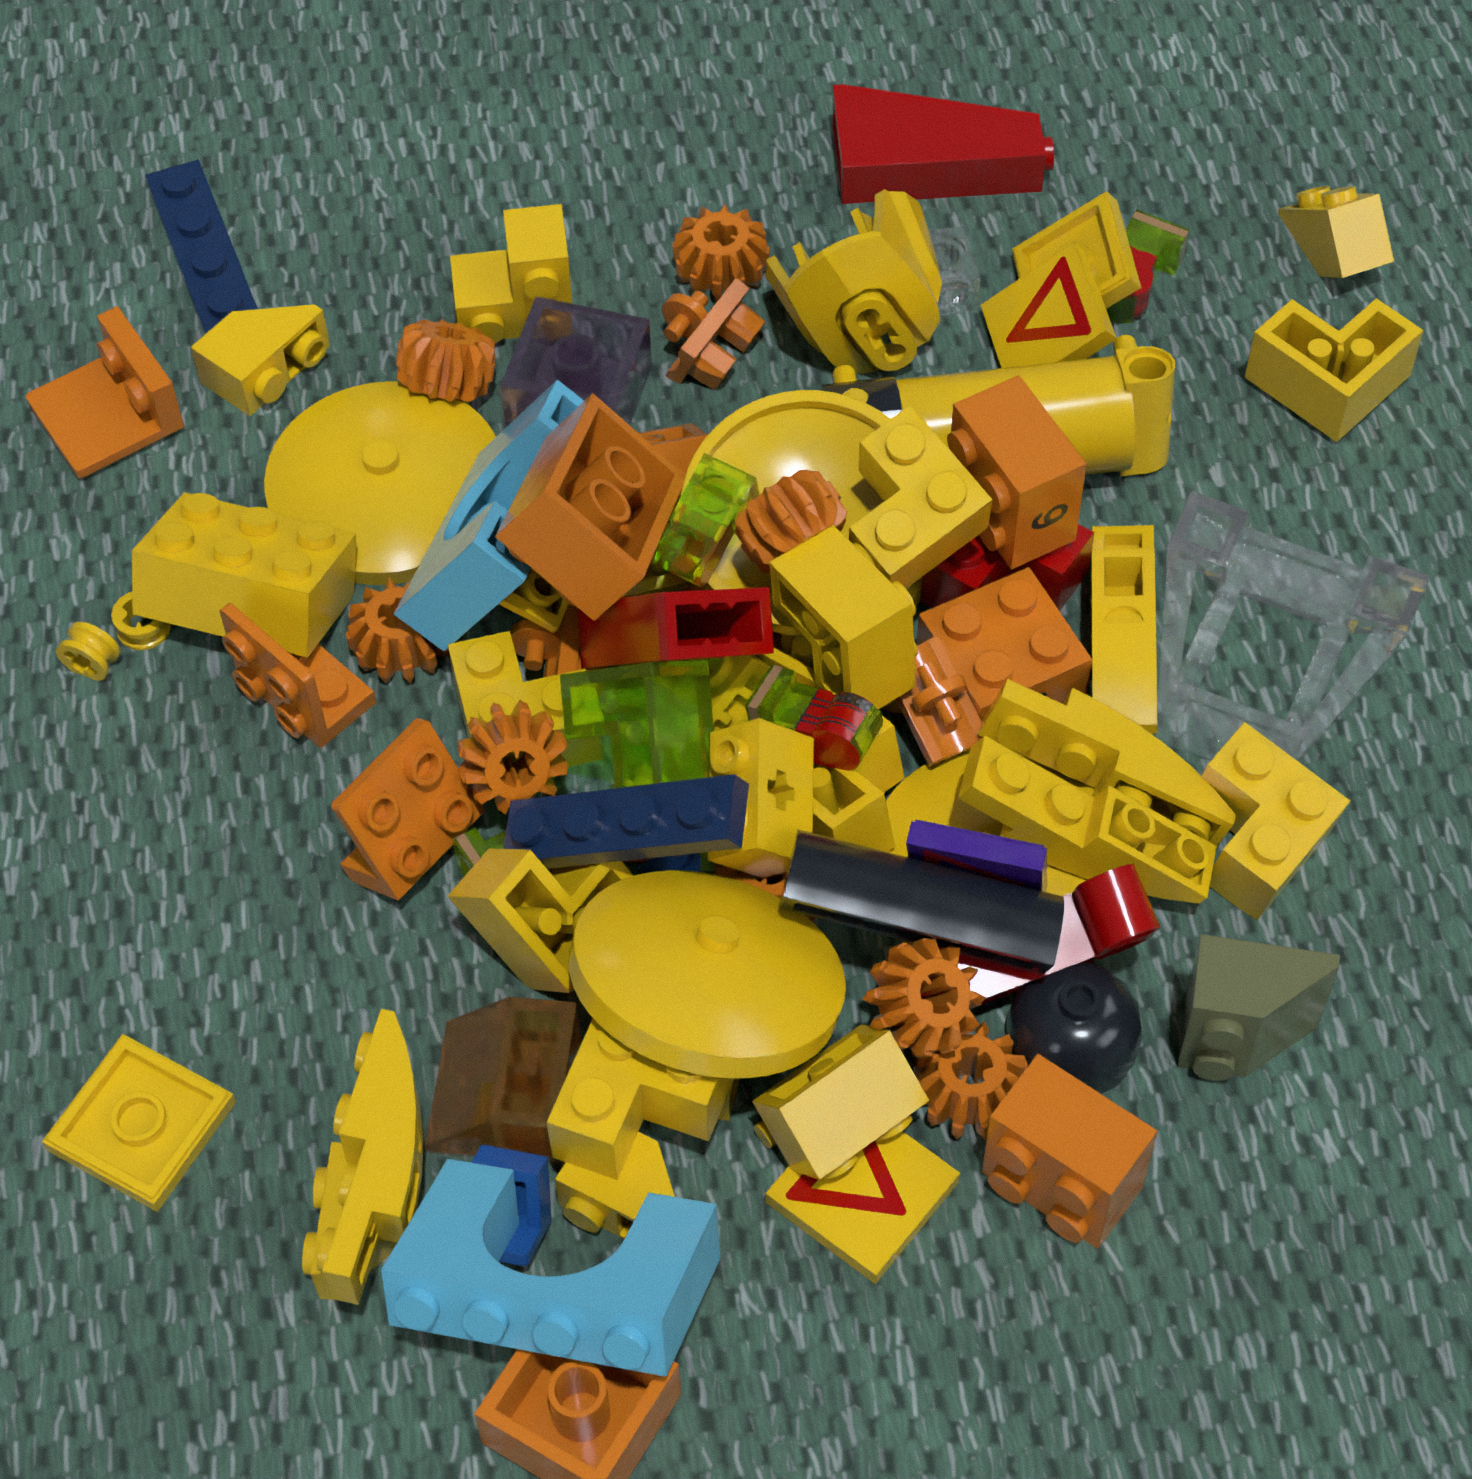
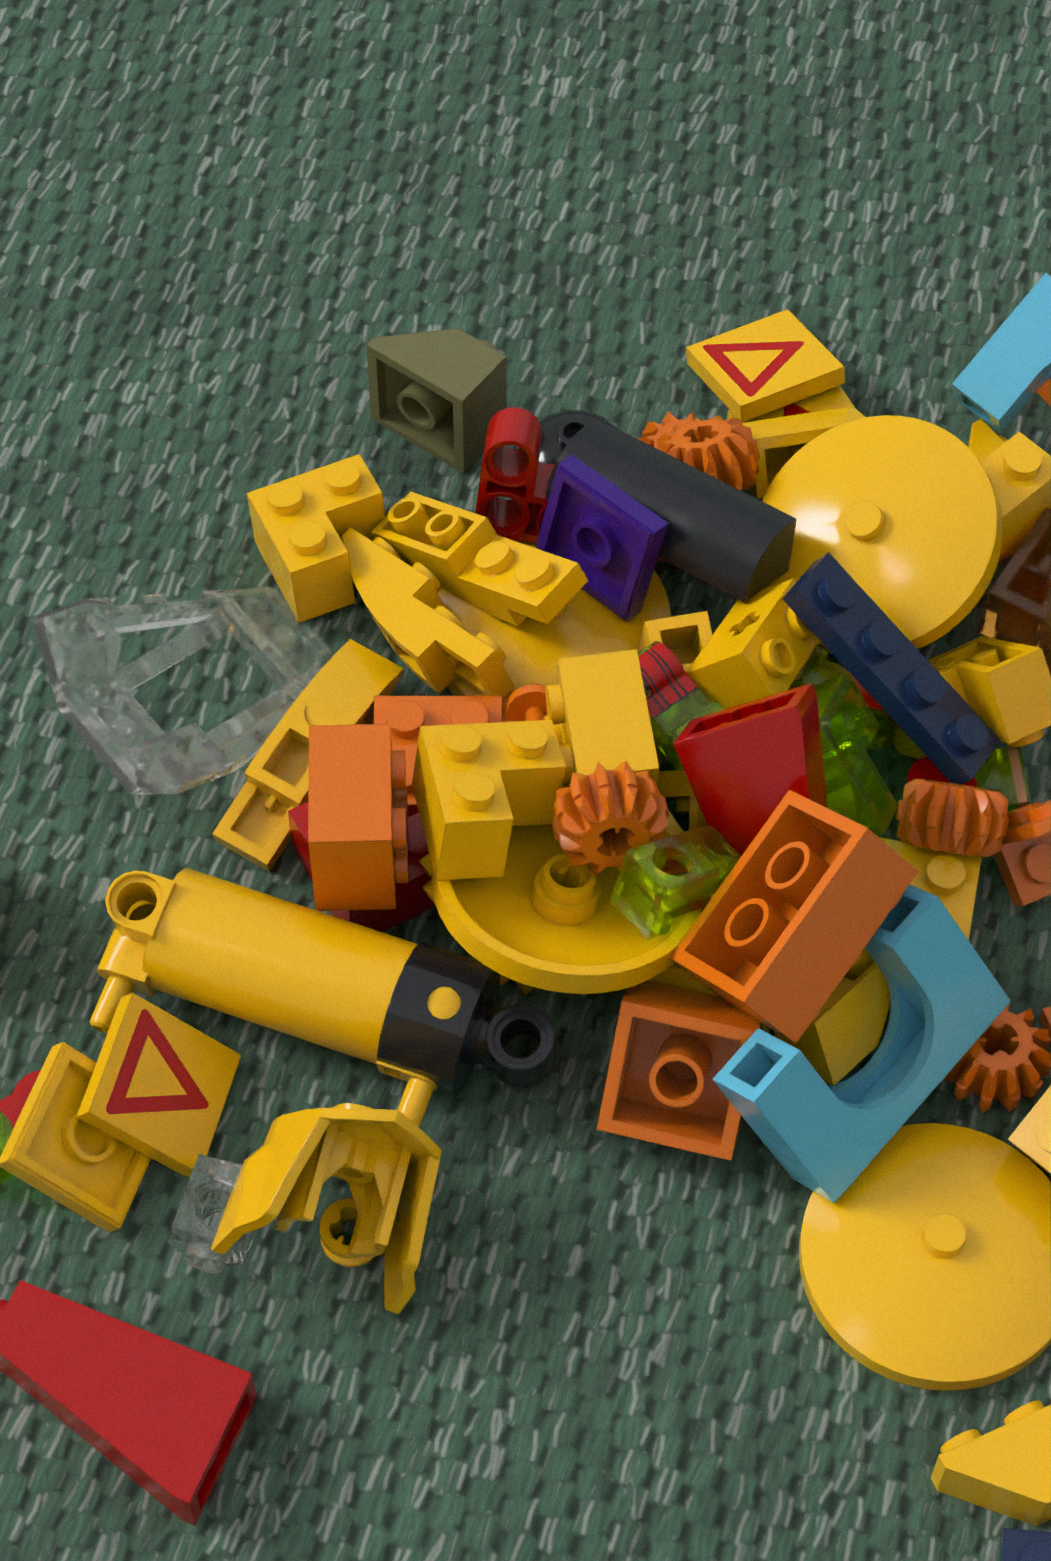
camera: 155 degrees left, 0 degrees up
(445, 360) = (840, 1353): orange gear -> none
(500, 286) = (697, 1408): yellow brick -> none
(582, 349) = (687, 1247): clear purple brick -> none
(719, 249) = (412, 1360): orange gear -> none
(727, 318) = (513, 1261): orange hips -> none
(951, 1244) = (765, 365): none -> yellow tile
(1067, 1152) = (649, 350): orange brick -> none

